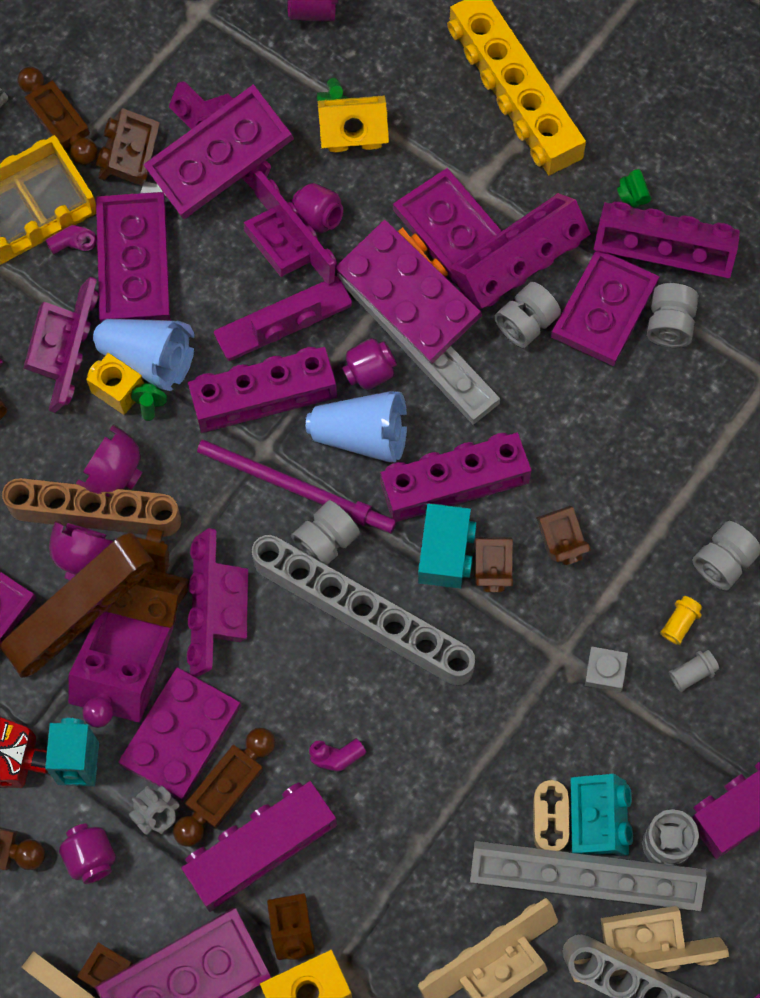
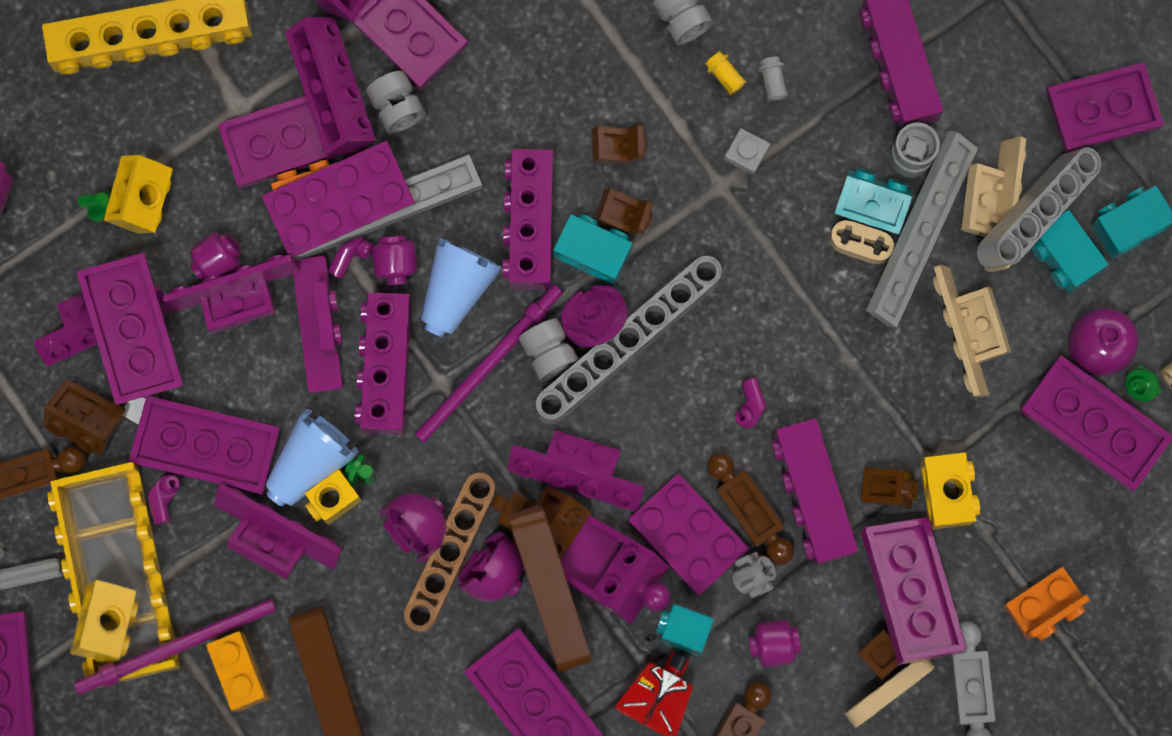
camera: 75 degrees left, 10 degrees up
(362, 321) = (347, 252): none -> magenta arm
(374, 566) = (594, 316): none -> magenta tile

